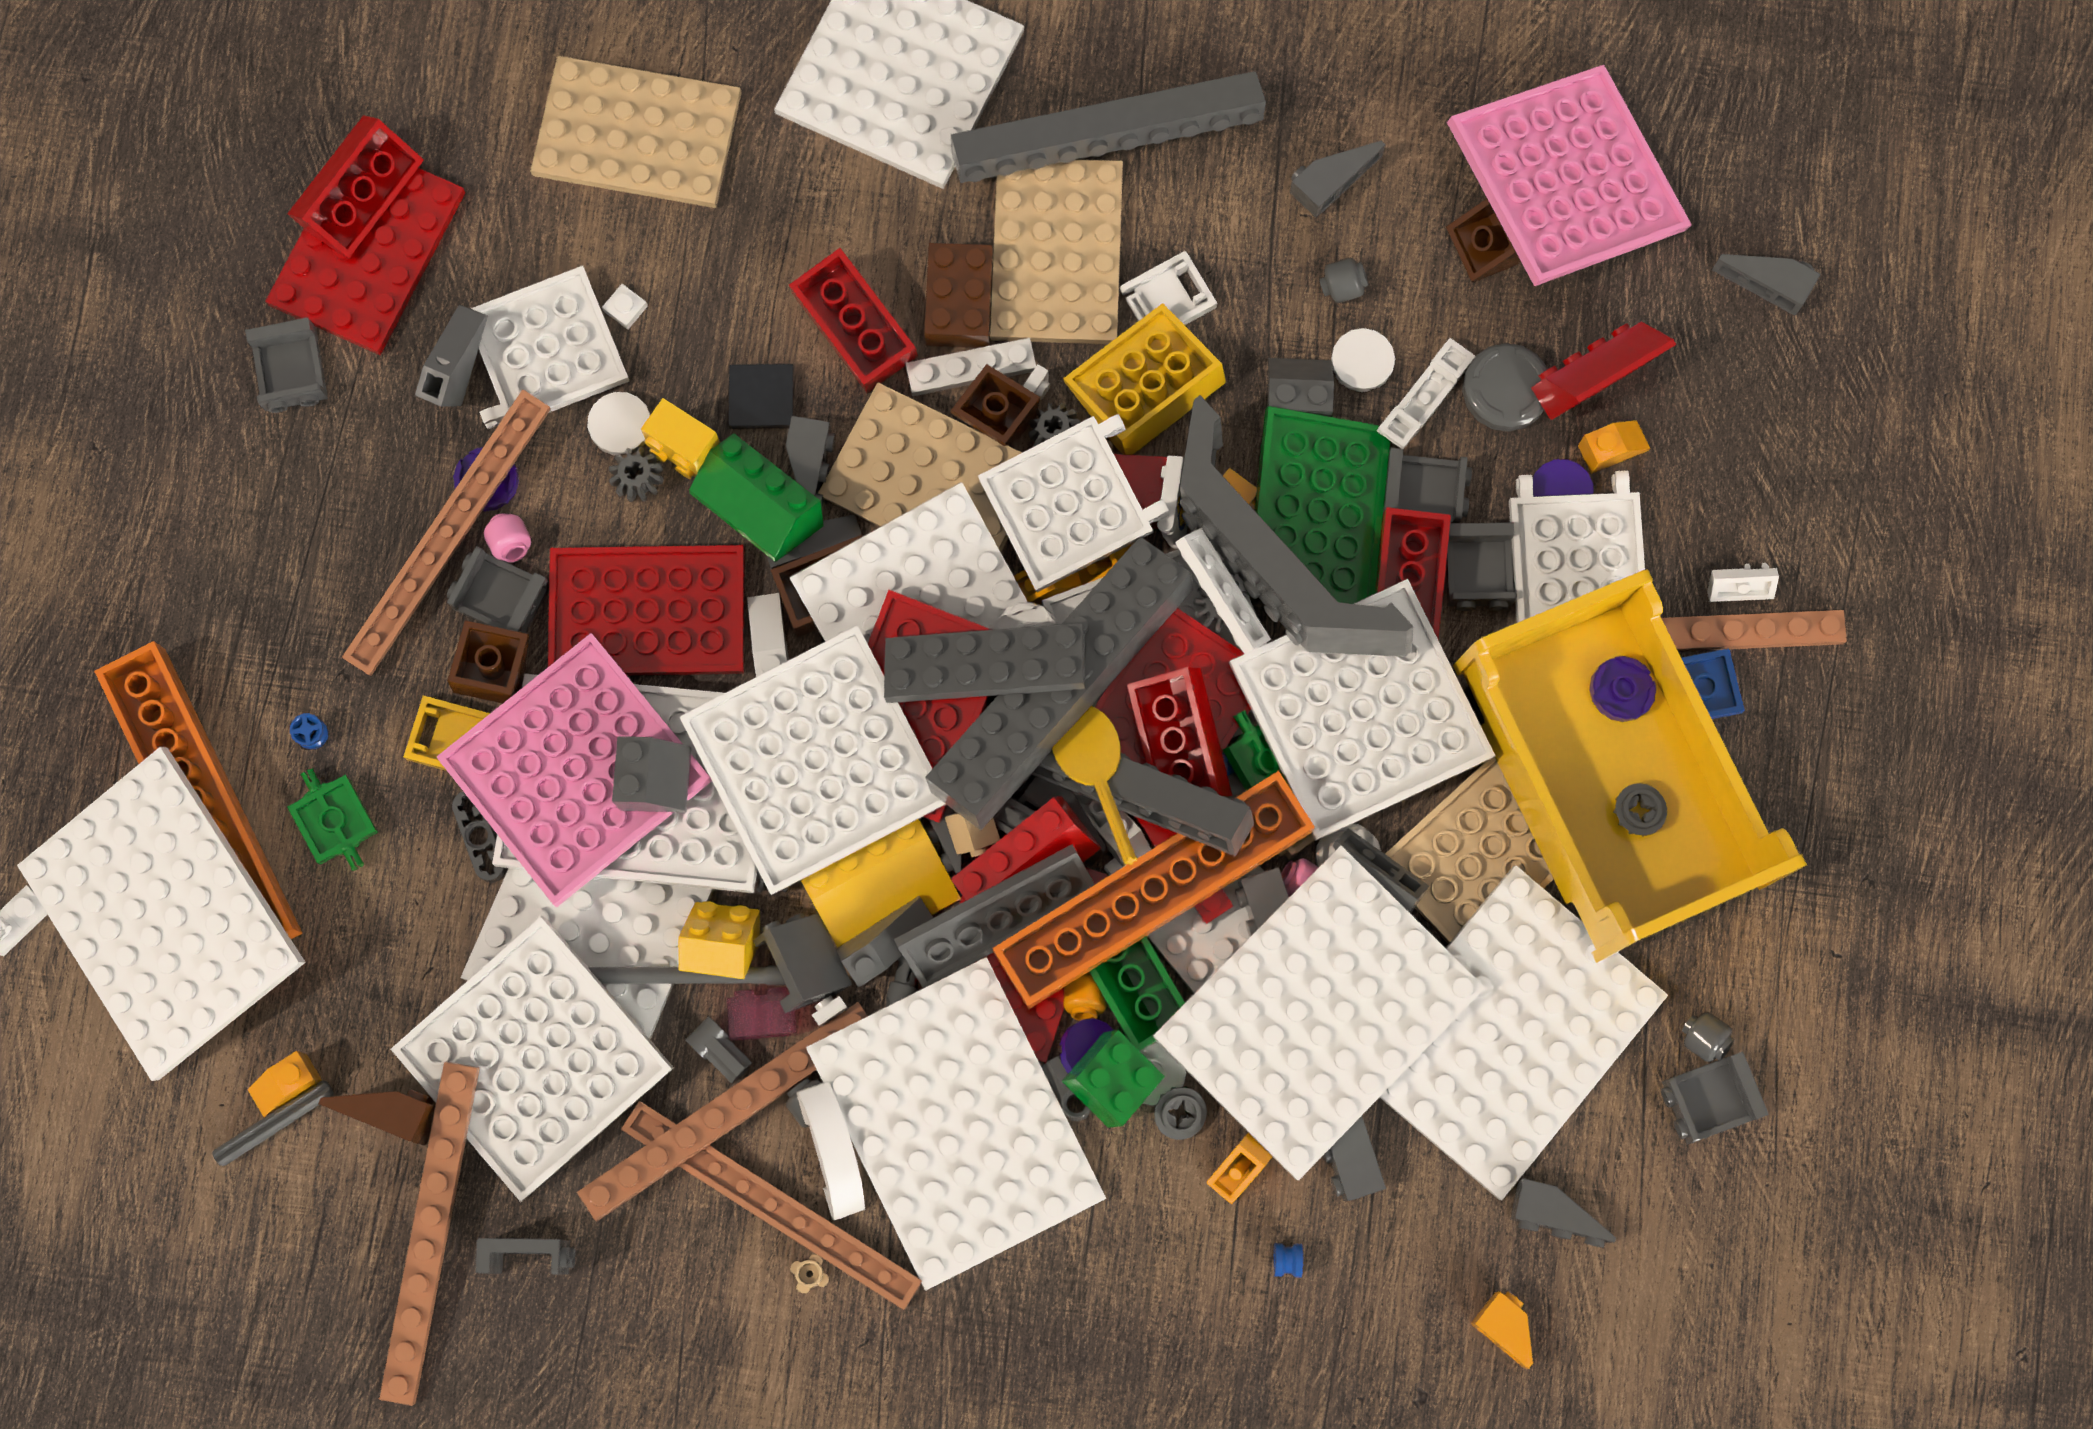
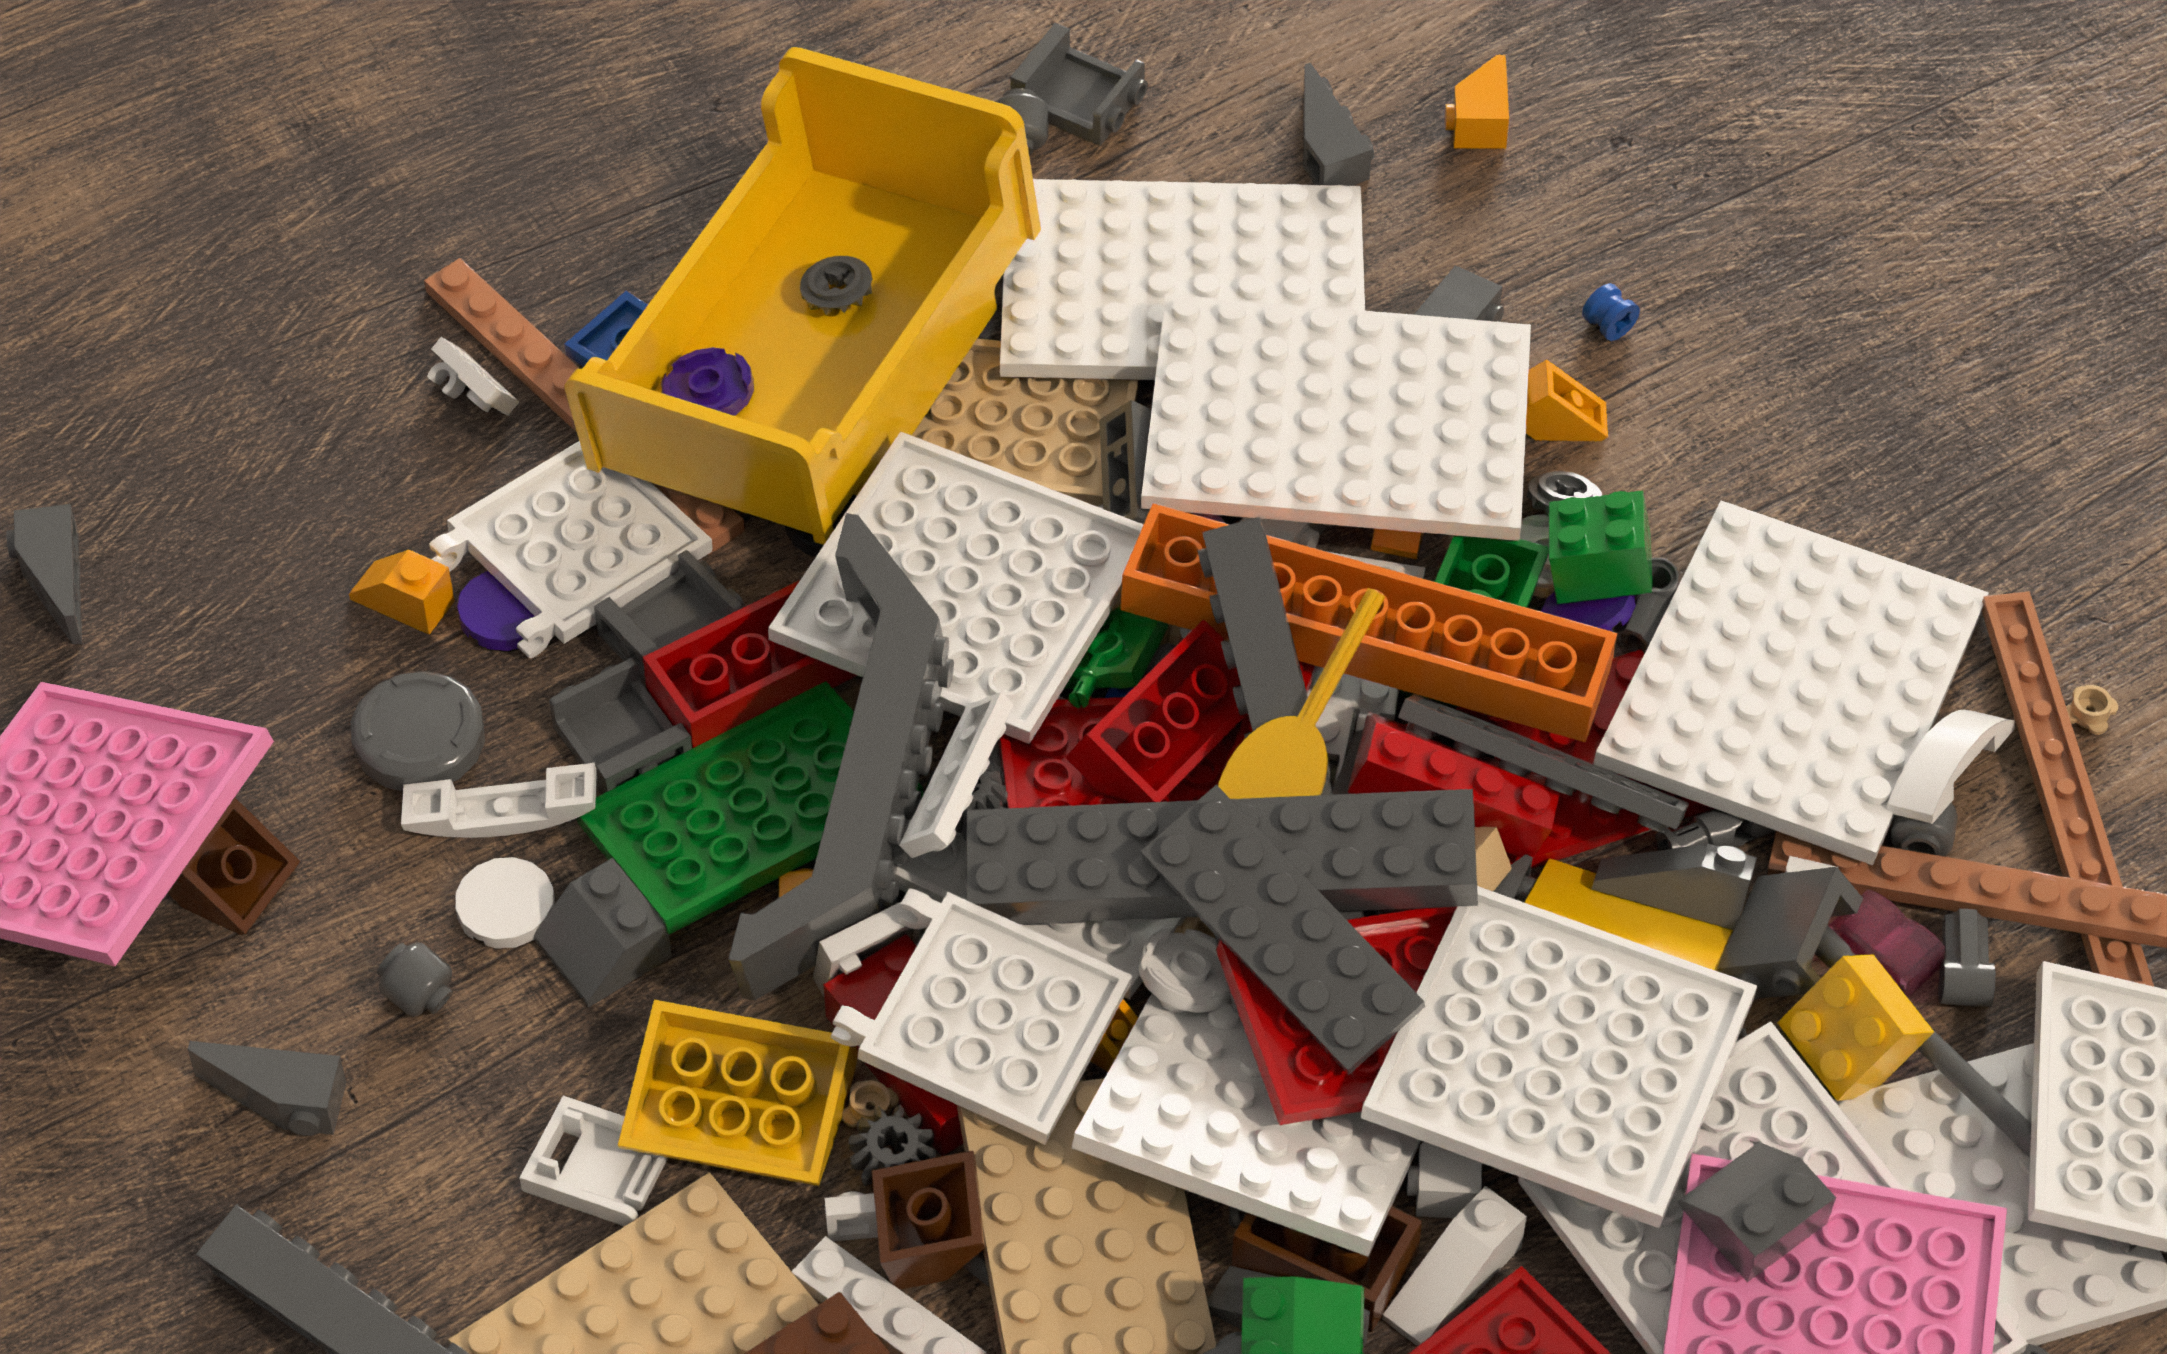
camera: 130 degrees left, 25 degrees down
(1600, 367) = (323, 625): red slope -> none

